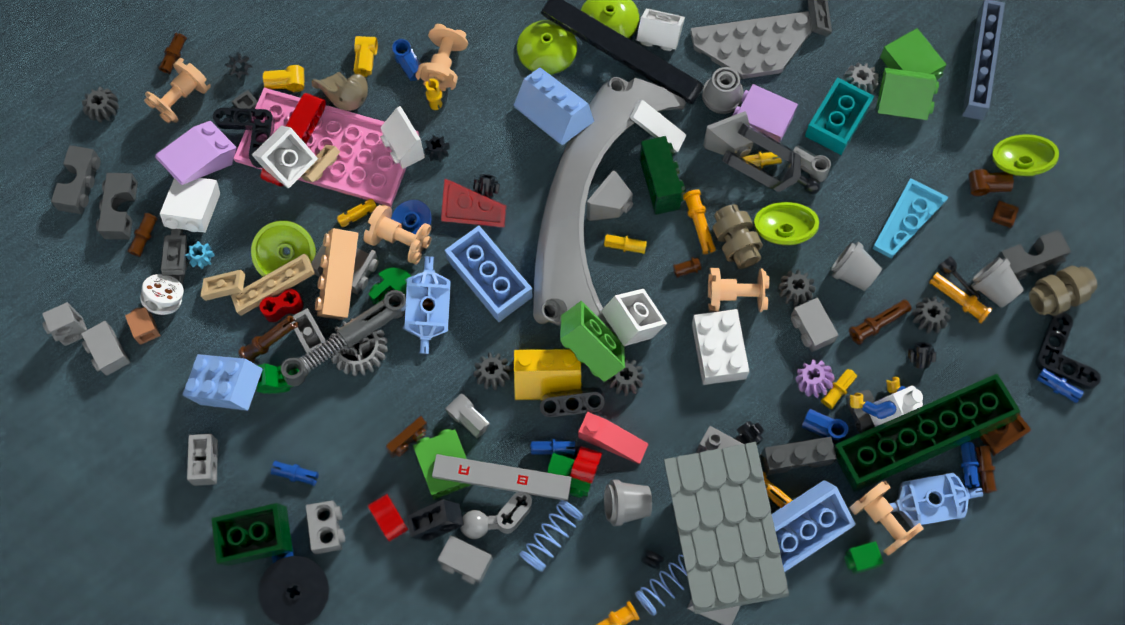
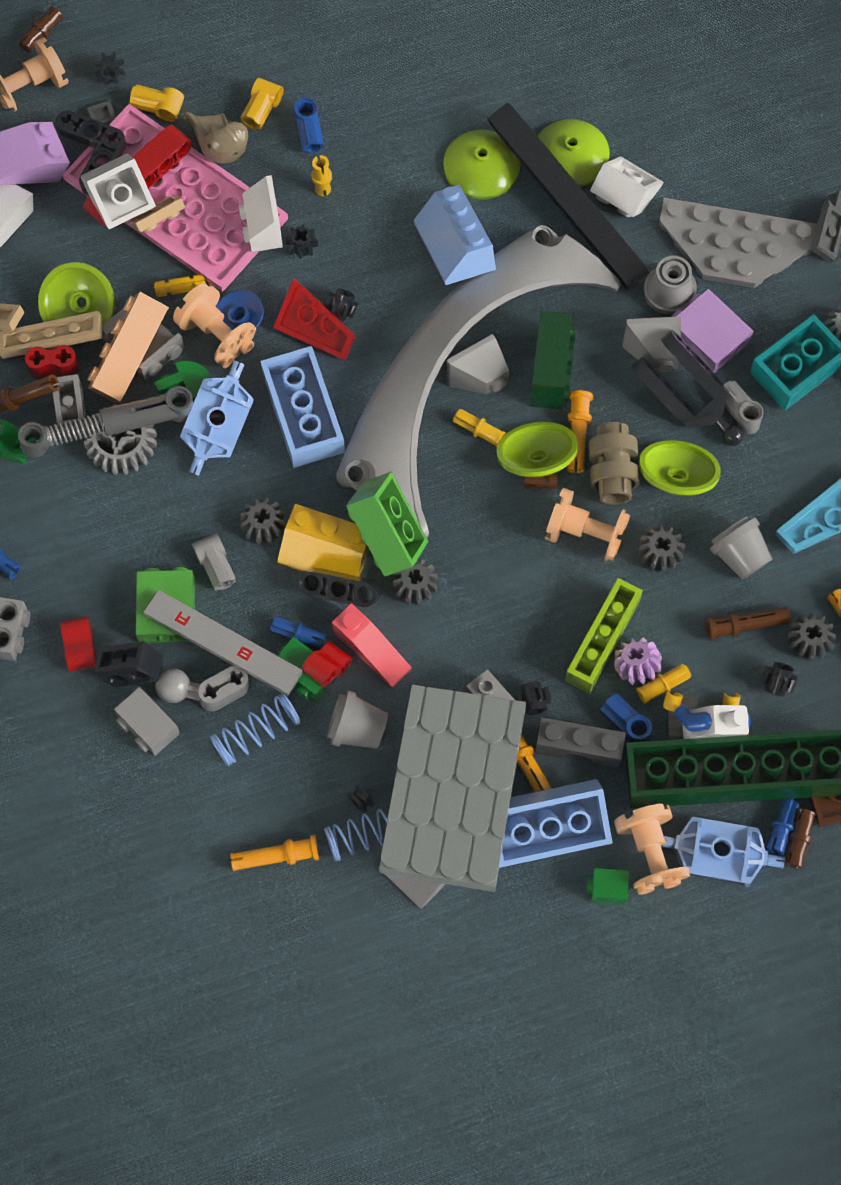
camera: 20 degrees right, 0 degrees up
(413, 432) = (125, 563): reddish brown plate -> none
(440, 64) = (344, 141): light nougat piece -> none
(633, 317) = (450, 514): white brick -> none
(657, 124) = (572, 300): white tile -> none
(677, 245) = (537, 449): none -> lime dish
(720, 347) = (540, 585): white brick -> none
(763, 159) = (684, 383): yellow axle -> none
(783, 369) = (603, 635): none -> lime brick
(814, 325) = (664, 599): light grey brick -> none

